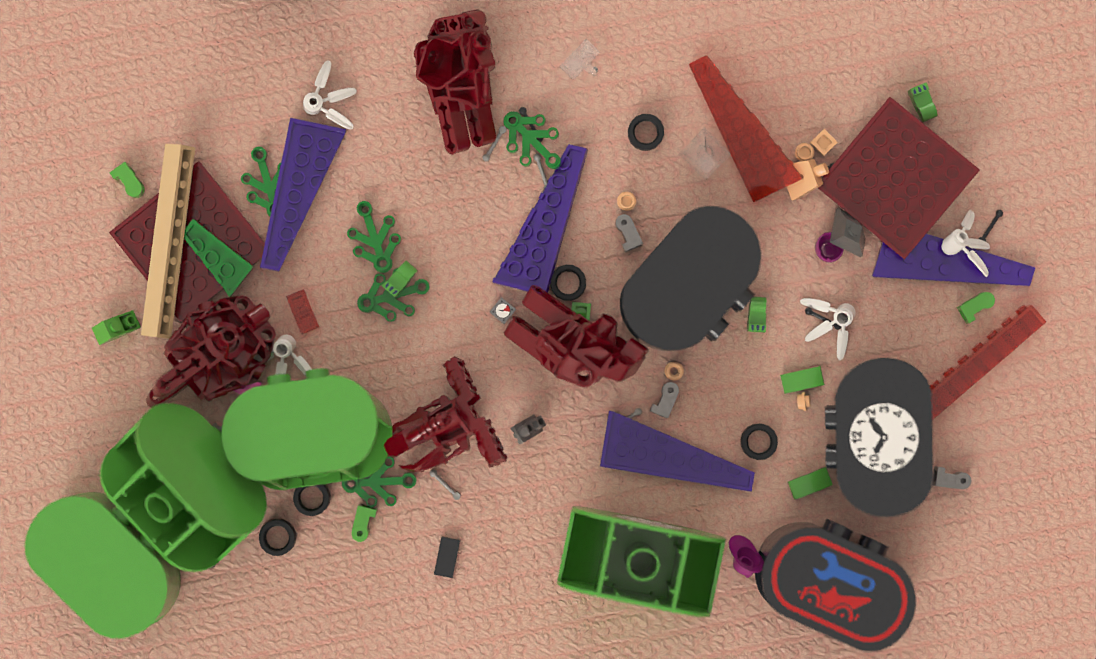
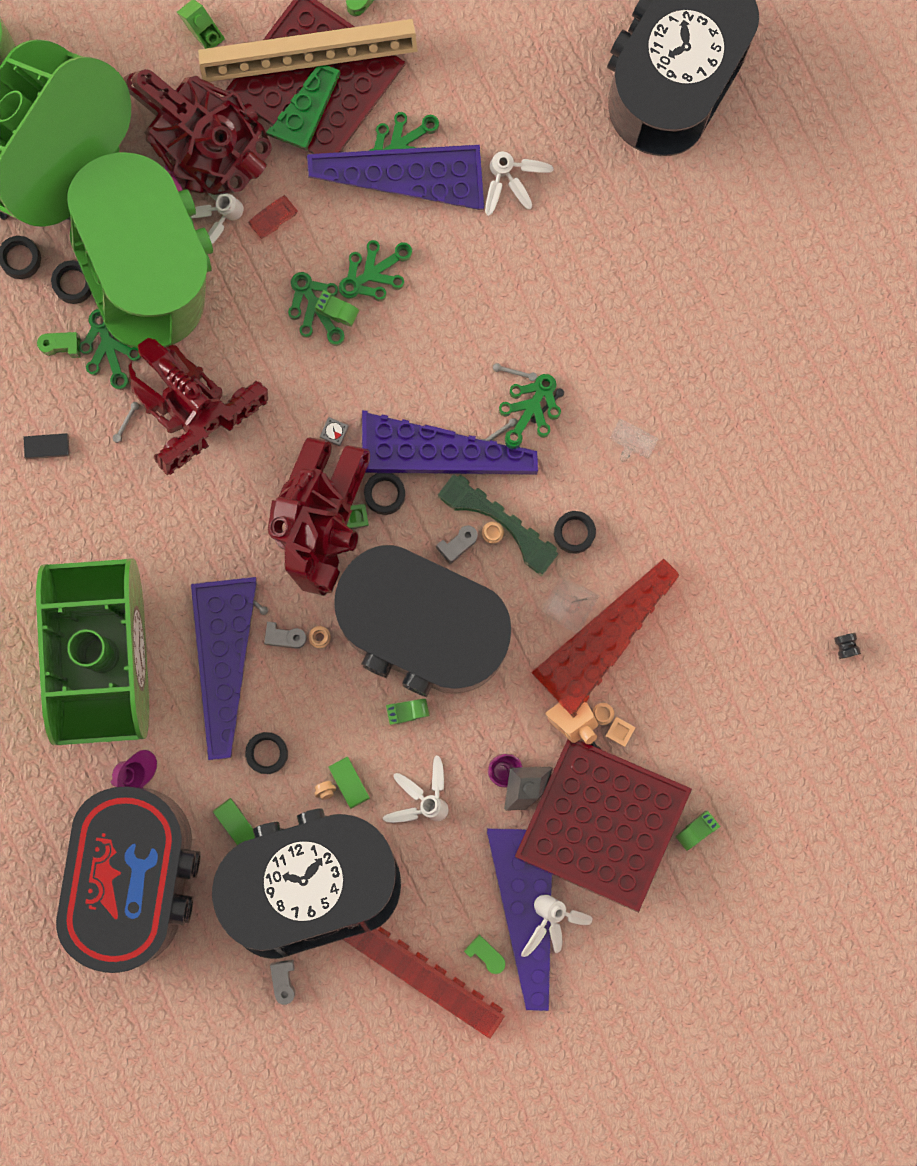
camera: 70 degrees right, 5 degrees down
(456, 73) = (572, 306): dark red piece -> none
(528, 428) = (211, 493): flat silver hips -> none
(652, 171) = (462, 497): none -> clear green arch
(808, 311) = (427, 768): black hinge -> none
(999, 213) = (598, 952): black hinge -> none

